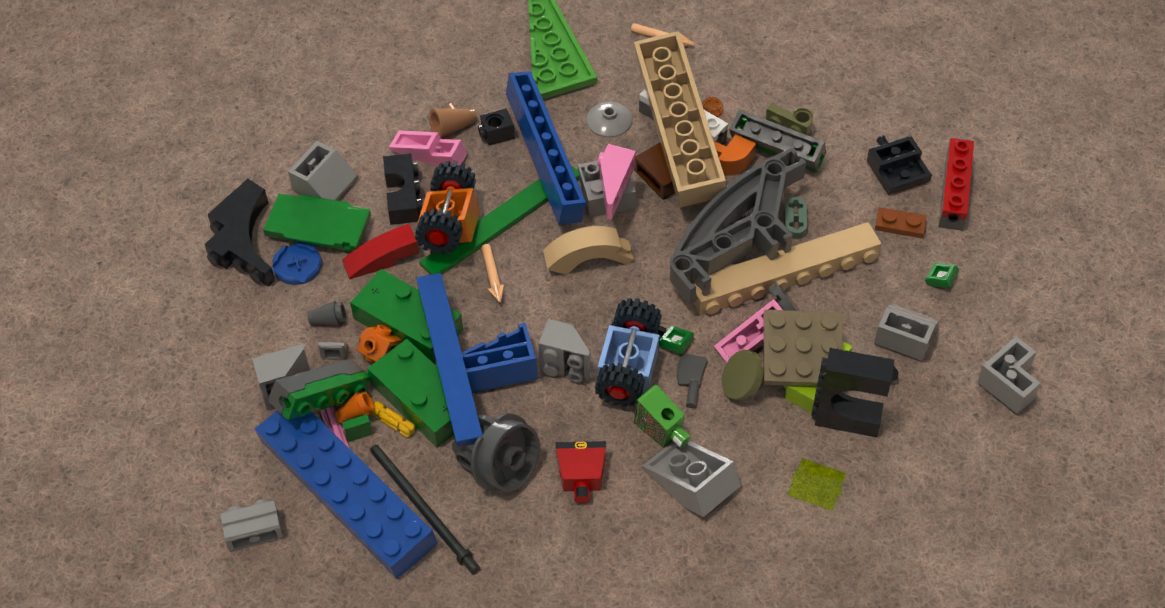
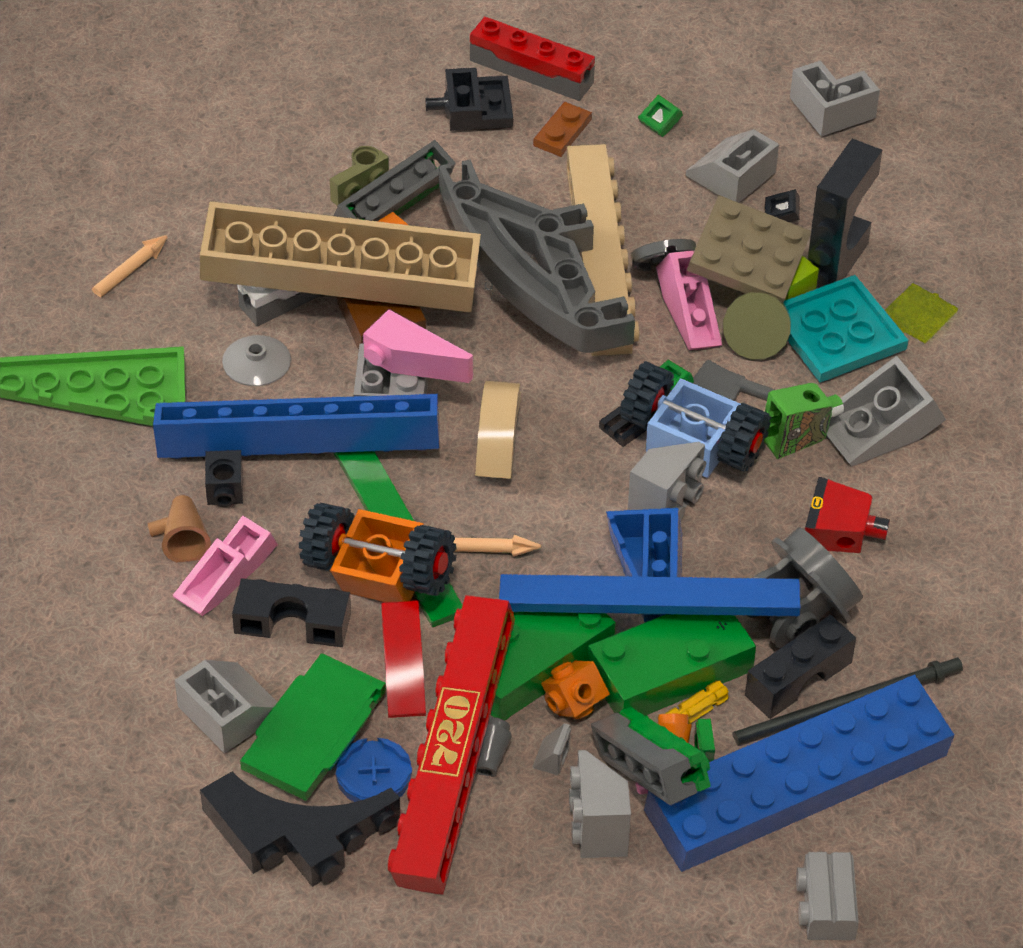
camera: 75 degrees left, 5 degrees down
(308, 286) = (452, 745): none -> red brick
(450, 474) = (779, 678): none -> black arch
(772, 431) = (841, 329): none -> teal plate

